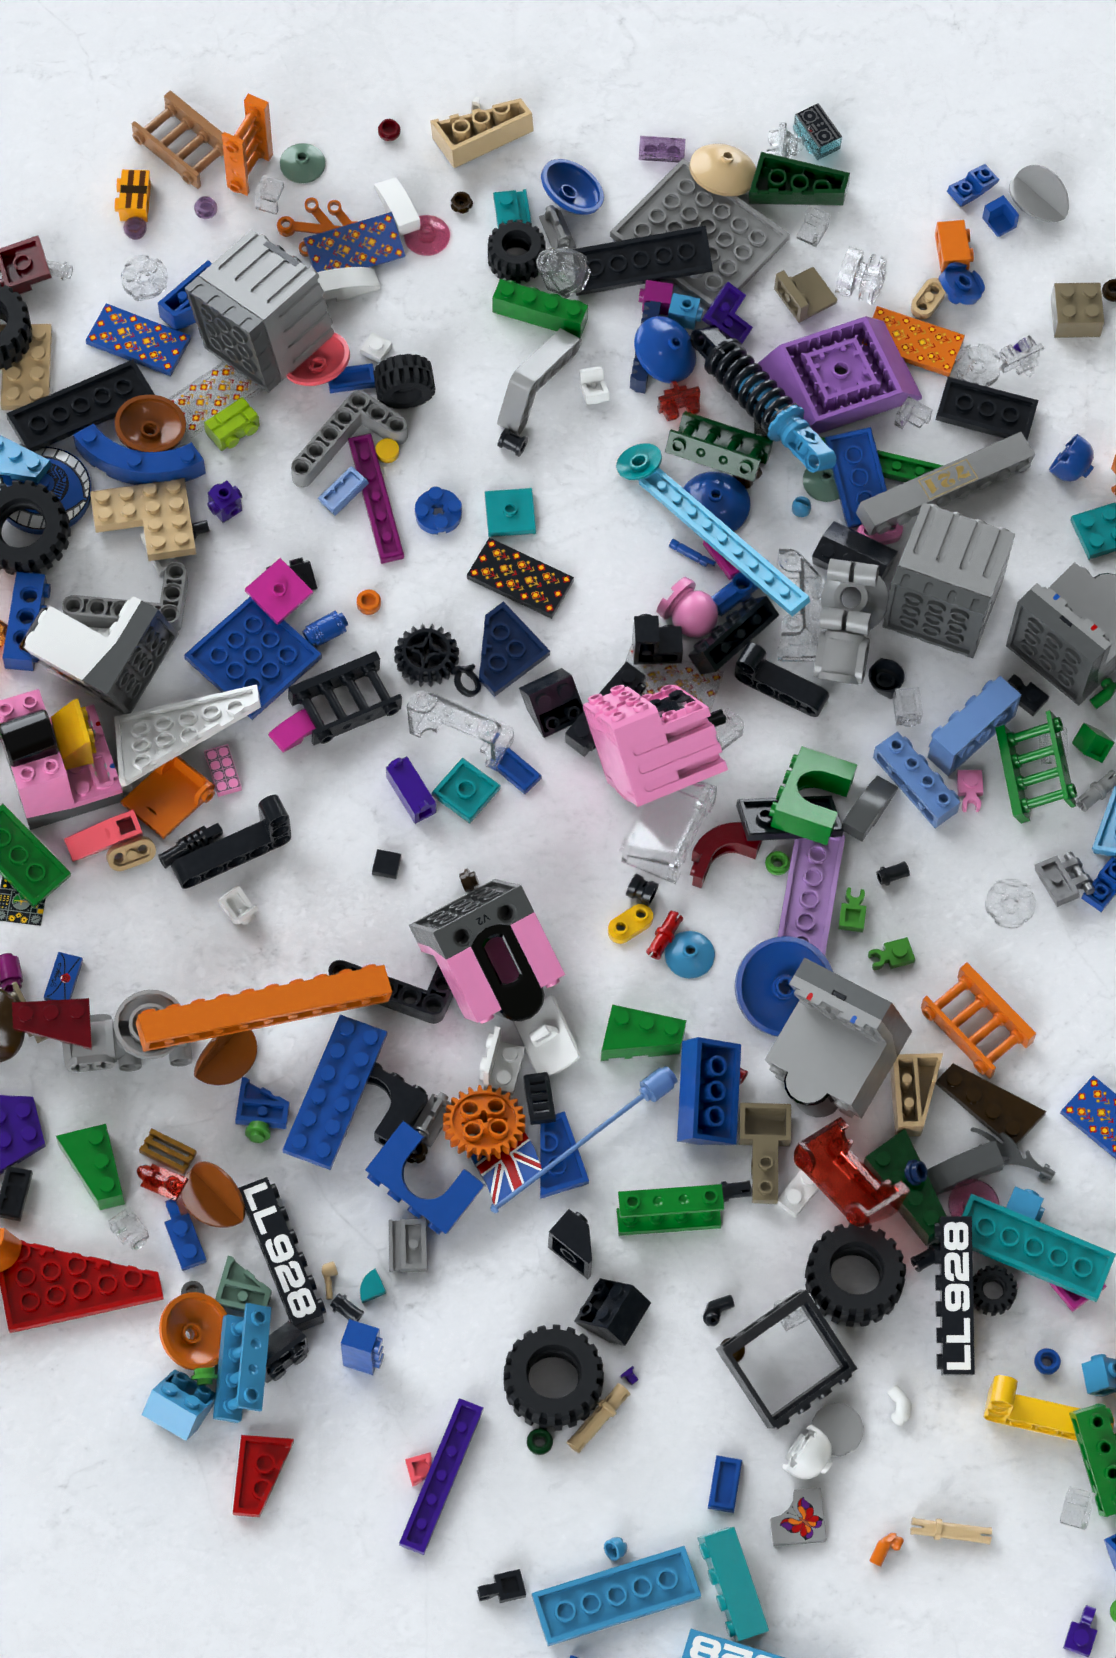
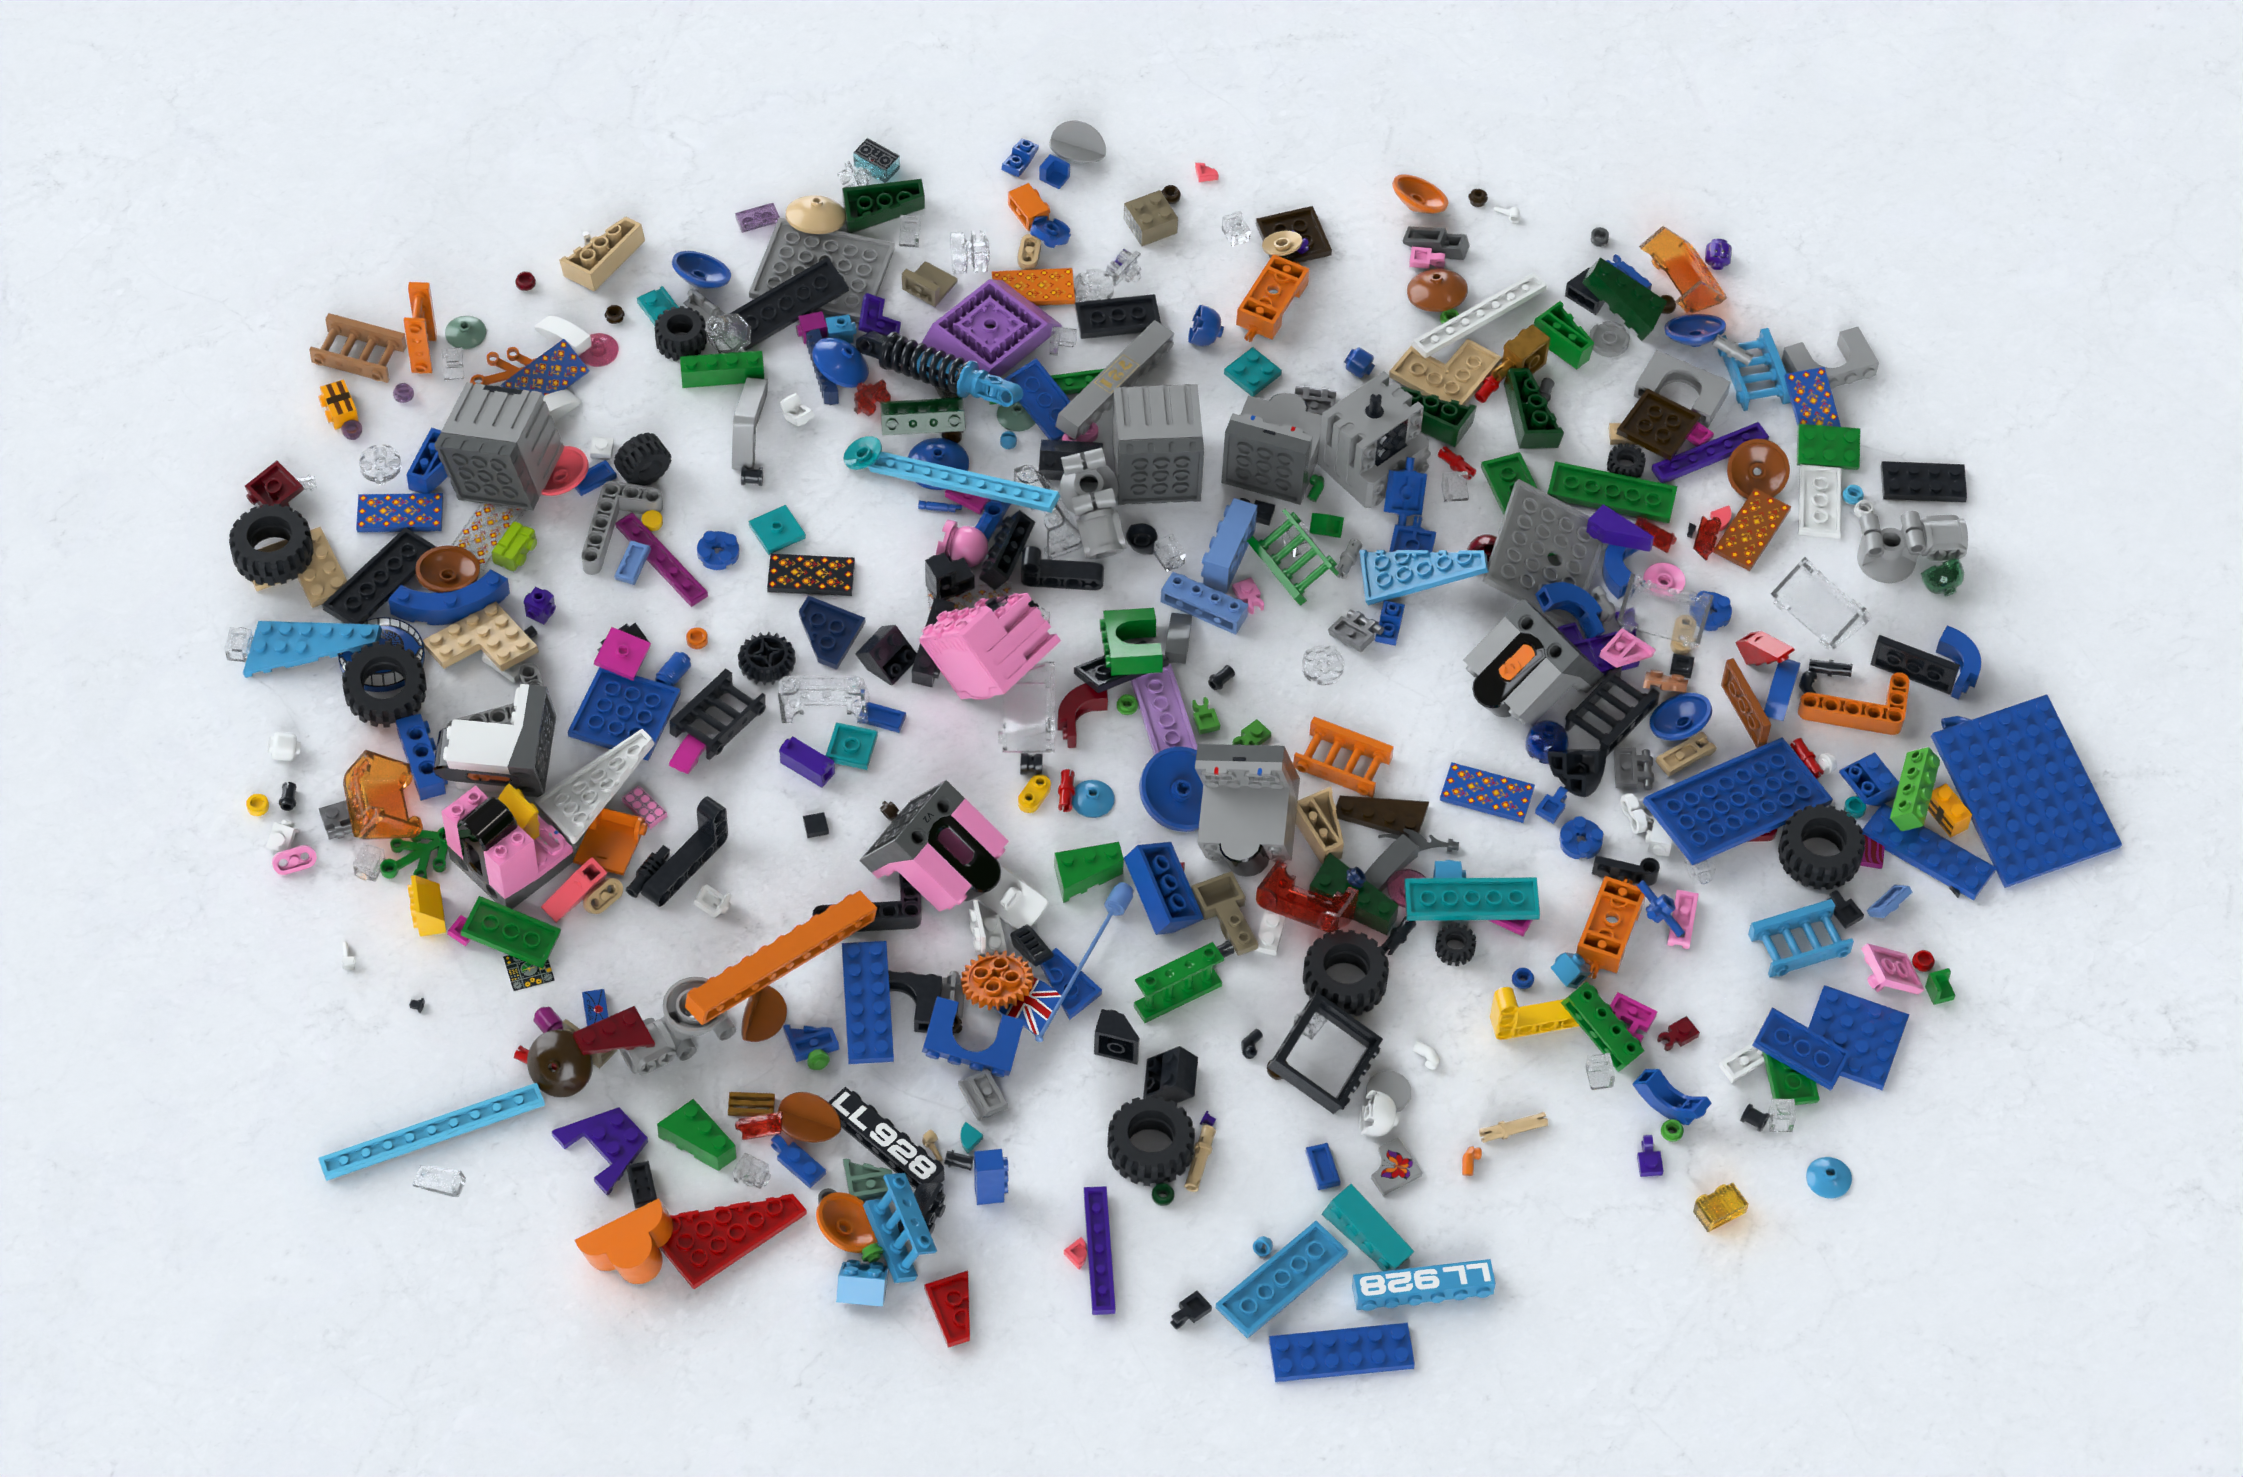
camera: 25 degrees left, 10 degrees down
(468, 670) = (805, 657): black piece -> none
(956, 1295) = (1431, 955): black brick -> none

